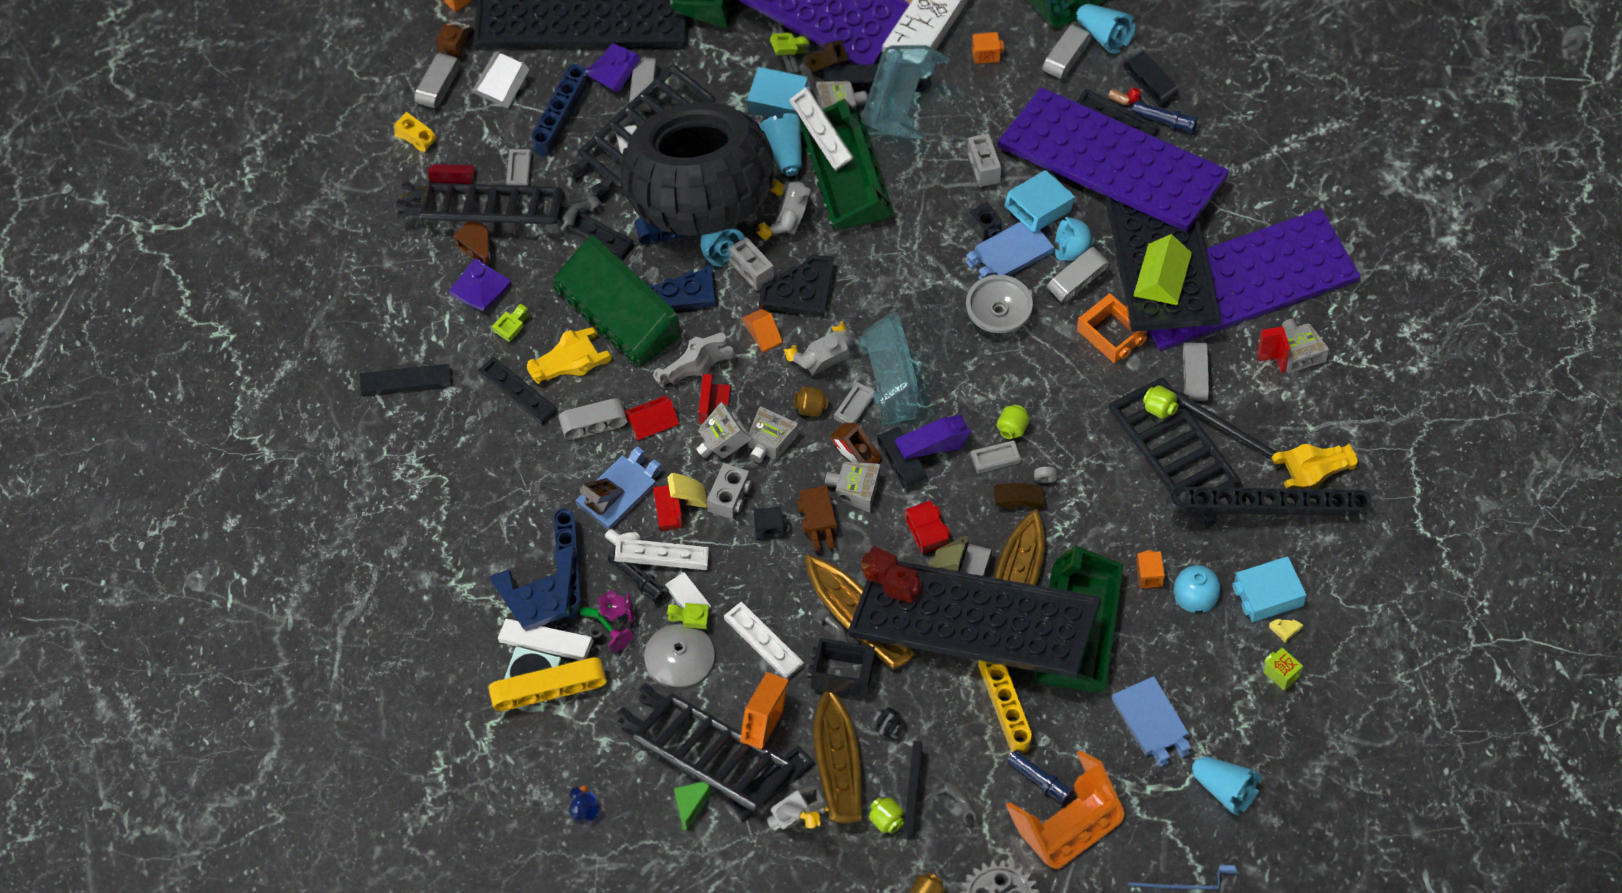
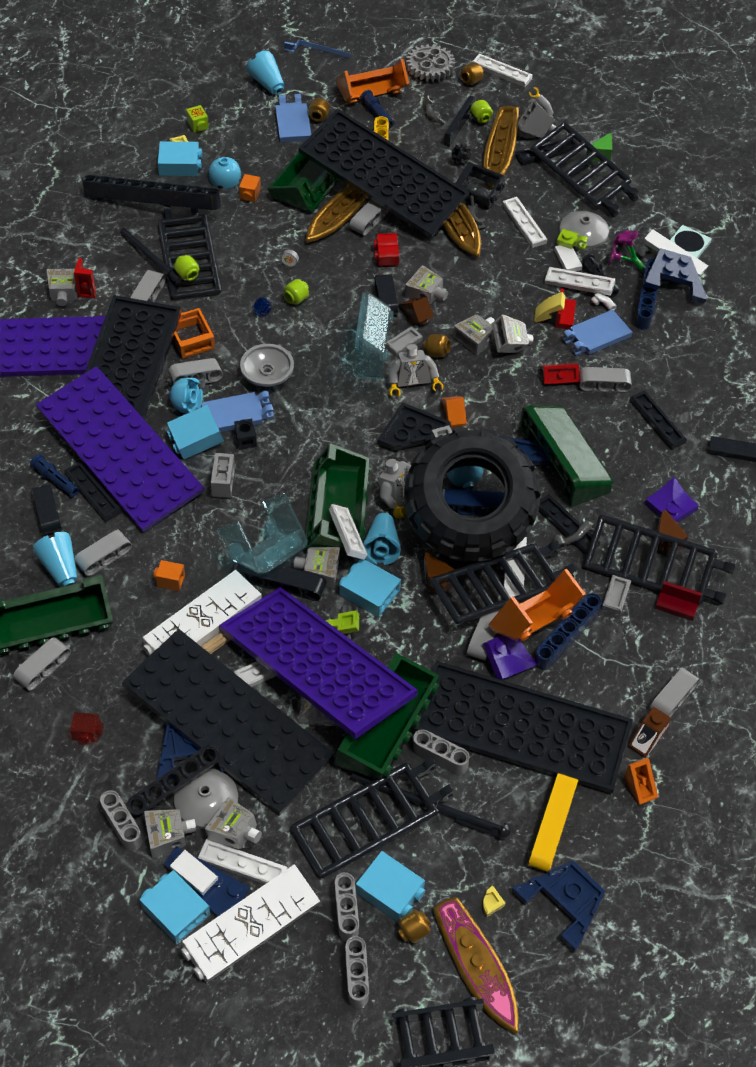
camera: 165 degrees left, 5 degrees down
(414, 132) = (705, 649): yellow leg -> none
(502, 79) = (614, 679): slope -> none
(511, 324) = (655, 464): lime plate -> none
(547, 684) = (681, 223): yellow beam -> none
(570, 356) = (610, 429): yellow animal -> none
(583, 804) = (671, 163): clear blue animal -> none
(600, 494) = (614, 318): dark brown slope -> none
(605, 88) = (521, 620): none -> orange windscreen
(696, 360) = (515, 388): light grey animal -> none
(711, 397) = (509, 369): red panel -> none
(725, 490) = (520, 304): light grey brick -> none
(764, 710) = (541, 166): orange window -> none
(769, 523) = (496, 279): black brick -> none
(818, 515) = (460, 276): reddish brown hinge -> none
(833, 55) = (314, 598): dark brown leg -> none
(877, 563) = (433, 216): clear red brick -> none
(901, 583) = (424, 199): clear red brick -> none
(936, 437) = (349, 291): dark purple slope -> none
(951, 555) = (382, 220): olive slope -> none
(995, 457) = (319, 282): light grey tile -> none
(1015, 494) = (318, 251): dark brown slope -> none
(1046, 395) = (262, 306): none -> clear blue tile
(1121, 739) = (318, 109): none -> pearl gold head
(1125, 99) = (76, 502): arm -> none
(1163, 271) = (137, 337): lime slope -> none
(1312, 465) = (104, 215): yellow animal -> none

